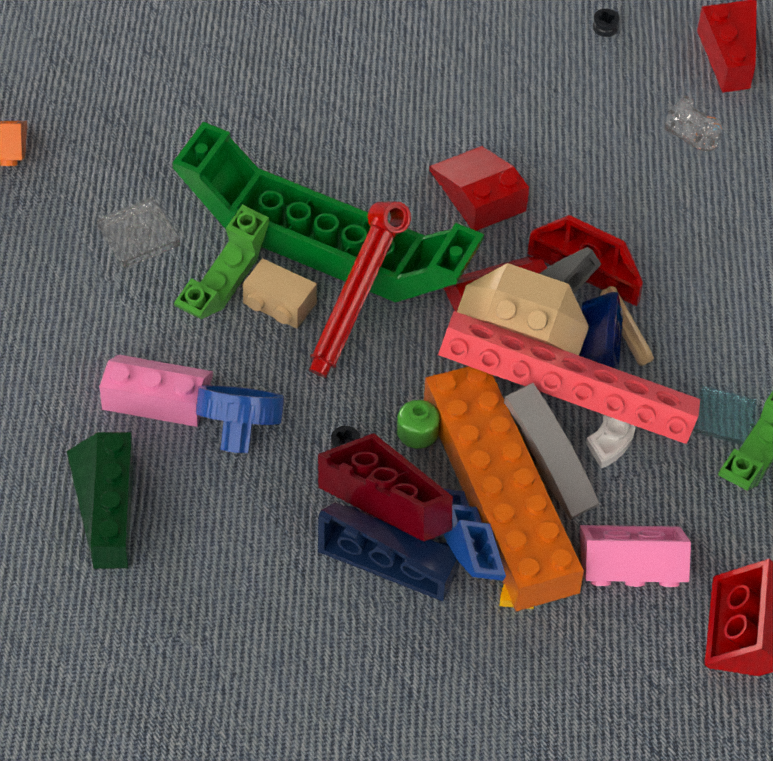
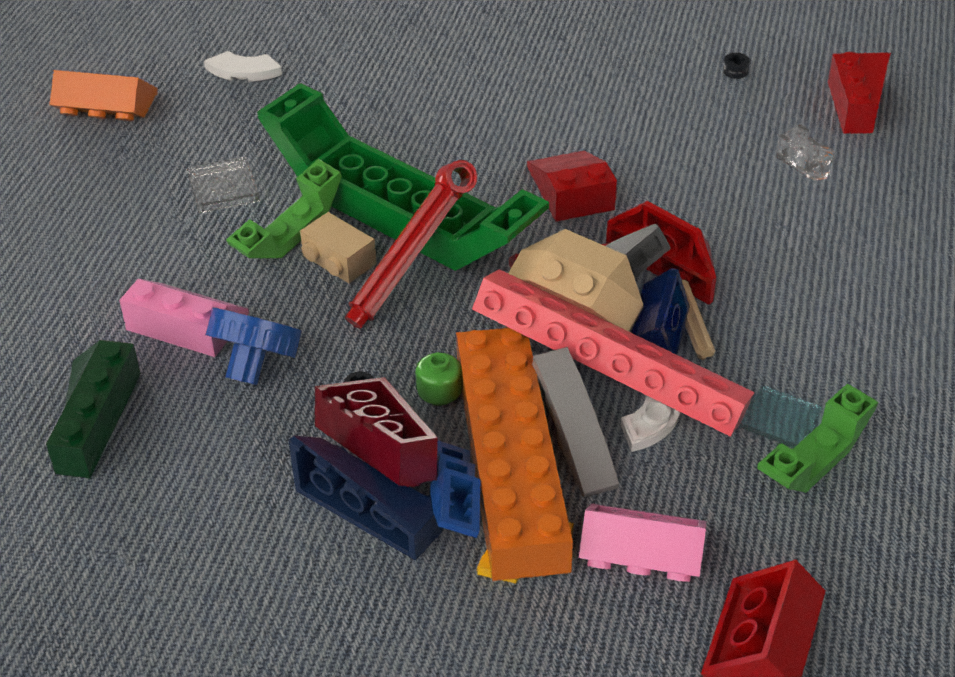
camera: 15 degrees right, 10 degrees down
(99, 83) = (252, 68): none -> white tile

